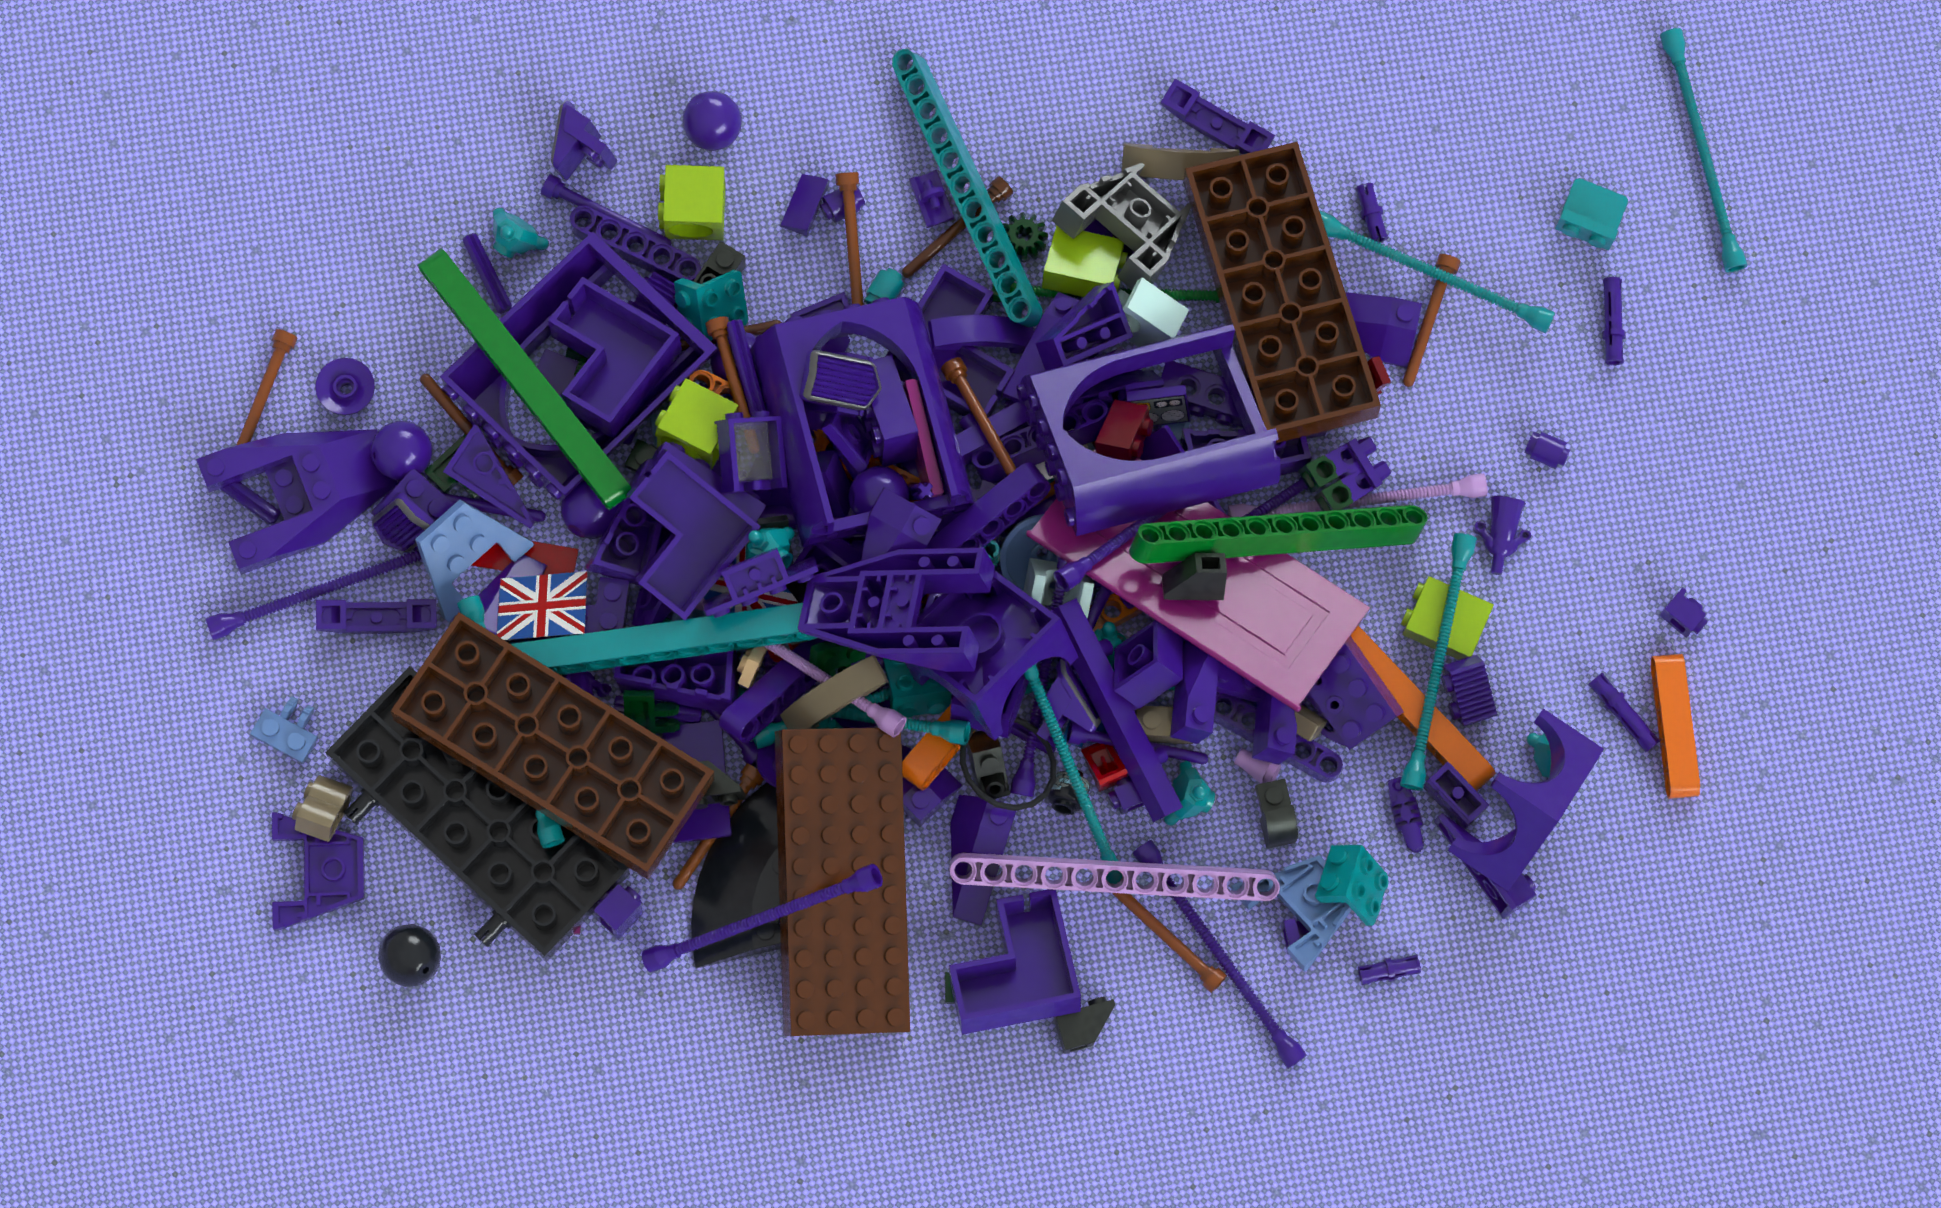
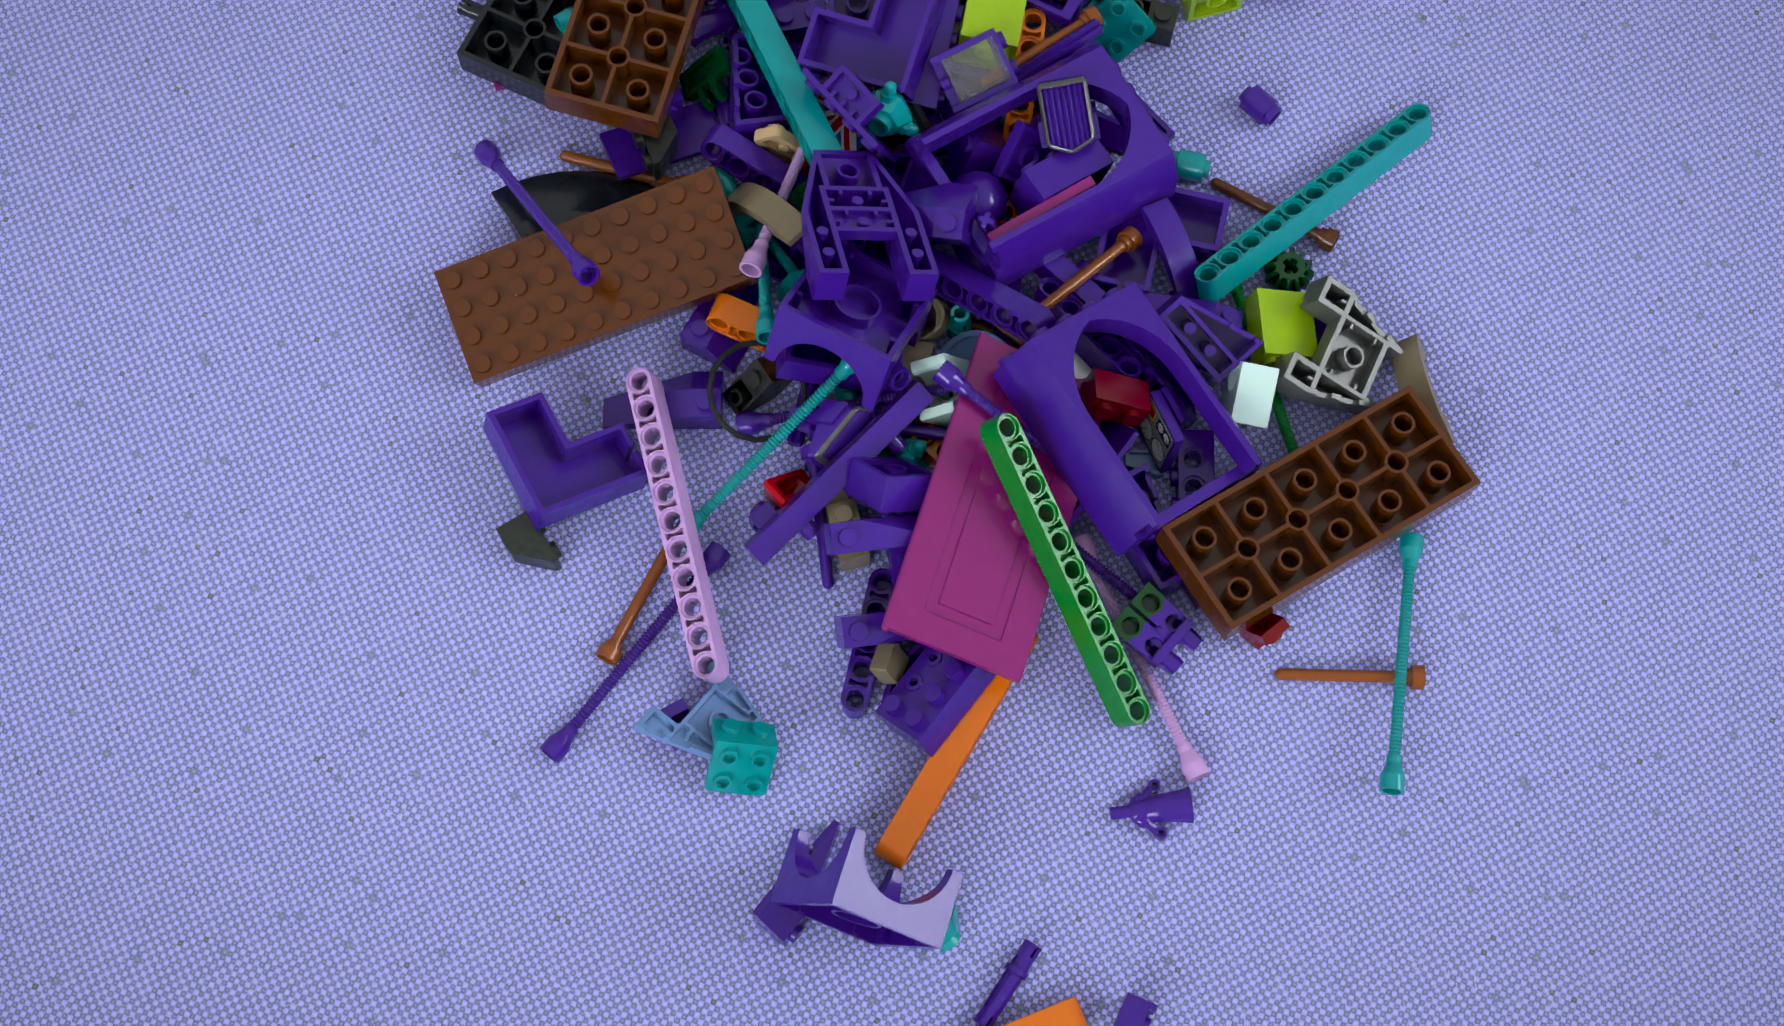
camera: 80 degrees right, 5 degrees down
(619, 910) = (518, 105): dark purple brick -> none
(805, 204) = (1240, 76): dark purple slope -> none
(848, 184) = (1276, 95): dark orange piece -> none
(931, 199) = (1291, 178): dark purple hips -> none
(1063, 796) = (762, 472): black head -> none
(1192, 792) = (785, 577): teal rock -> none
(1196, 578) = (985, 495): pearl dark grey slope -> none
(1213, 121) = (1476, 410): dark purple slope -> none
(1258, 769) = (828, 642): lavender cone -> none
(1277, 813) = (785, 663): pearl dark grey brick -> none
(1371, 212) = (1442, 588): dark purple pin -> none
(1385, 326) = (1326, 627): dark purple wedge -> none
(1389, 969) = (667, 820): dark purple pin -> none
(1406, 815) = (830, 792): dark purple hinge -> none
(1425, 619) = (1045, 776): lime brick -> none
(1455, 795) = (871, 818): dark purple brick -> none
(1462, 551) = (1117, 765): teal hose -> none
(1469, 691) = (975, 815): dark purple brick -> none
(1547, 449) = (1258, 829): dark purple brick -> none
(1592, 214) = (1526, 807): teal bracket -> none
(1613, 330) = (1408, 864): dark purple pin -> none
(1732, 254) = (1542, 965): teal hose -> none

